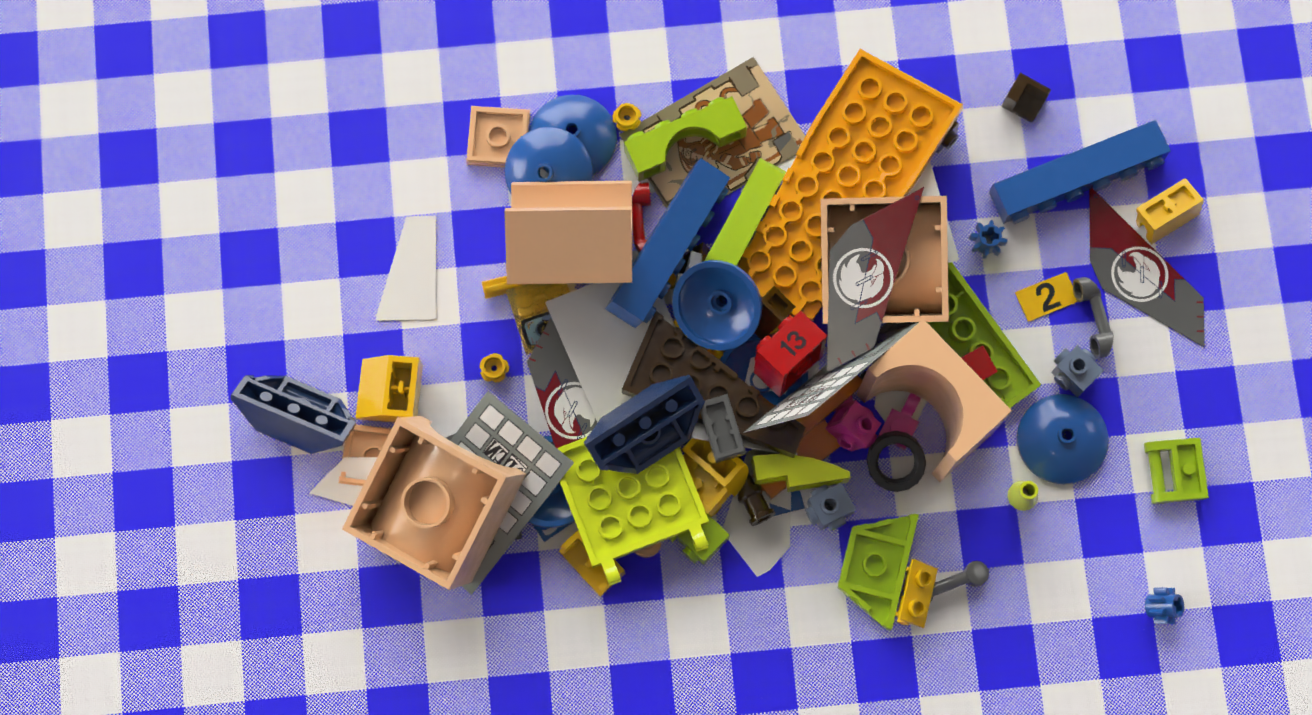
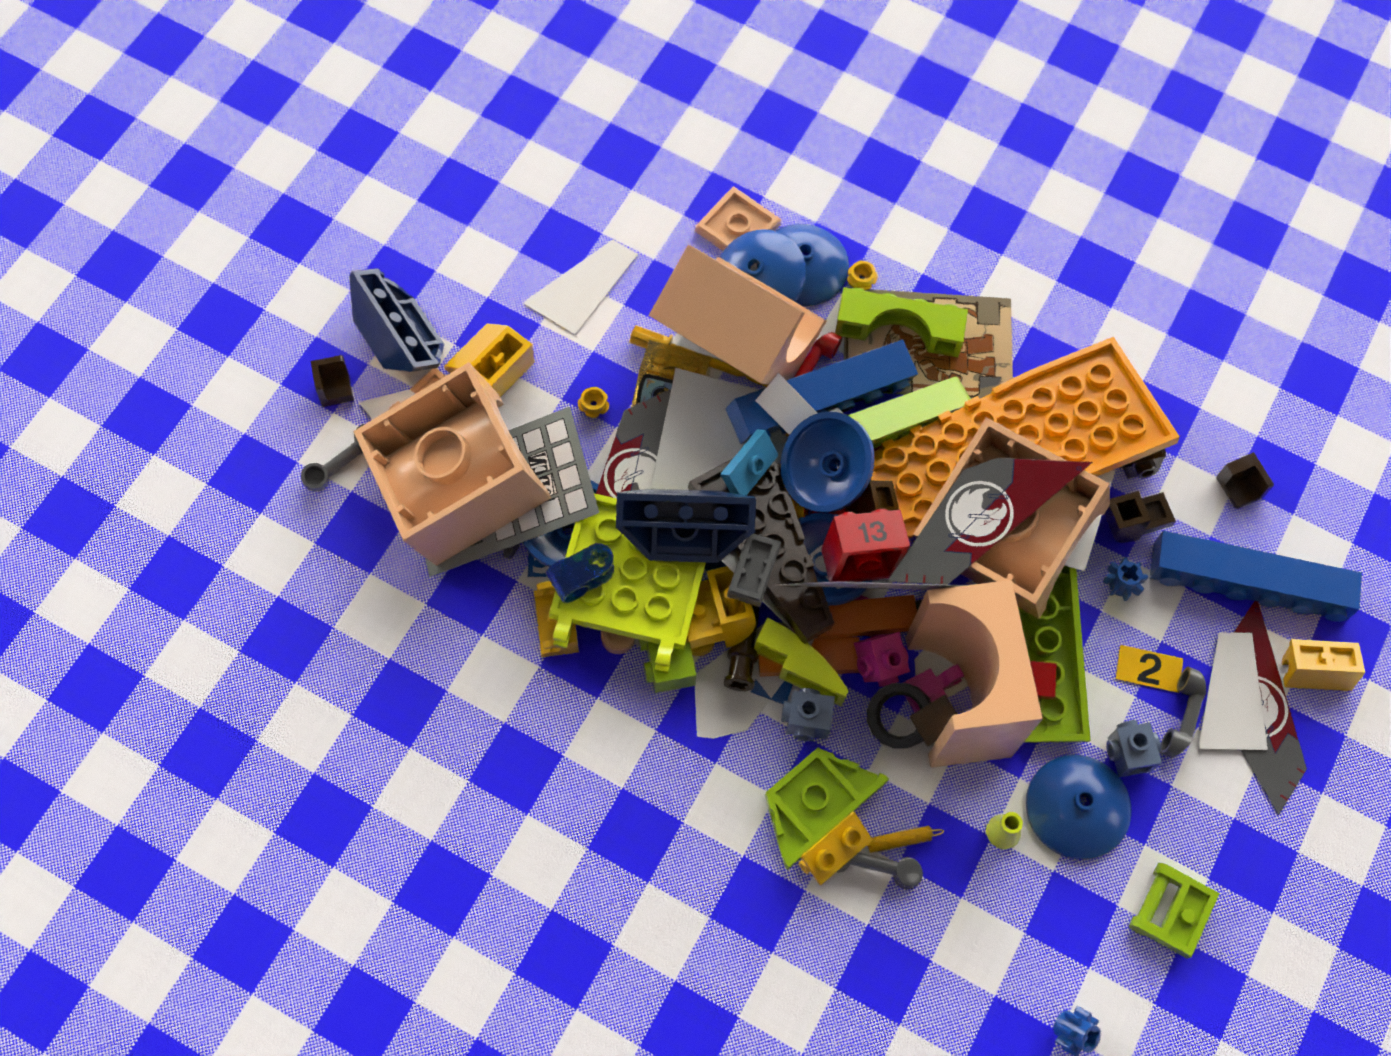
camera: 30 degrees right, 10 degrees down
(278, 491) = (332, 381): none -> dark brown panel
(326, 577) = (315, 476): none -> dark grey bar
(593, 524) = (578, 575): none -> clear blue piece
(654, 279) = (784, 404): none -> white sticker
(659, 345) = (749, 463): none -> dark azure plate
(926, 449) = (933, 719): none -> dark brown panel
(956, 550) = (902, 838): none -> yellow piece
(967, 182) = (1134, 516): none -> dark brown brick
(1123, 282) = (1233, 702): none -> white sticker

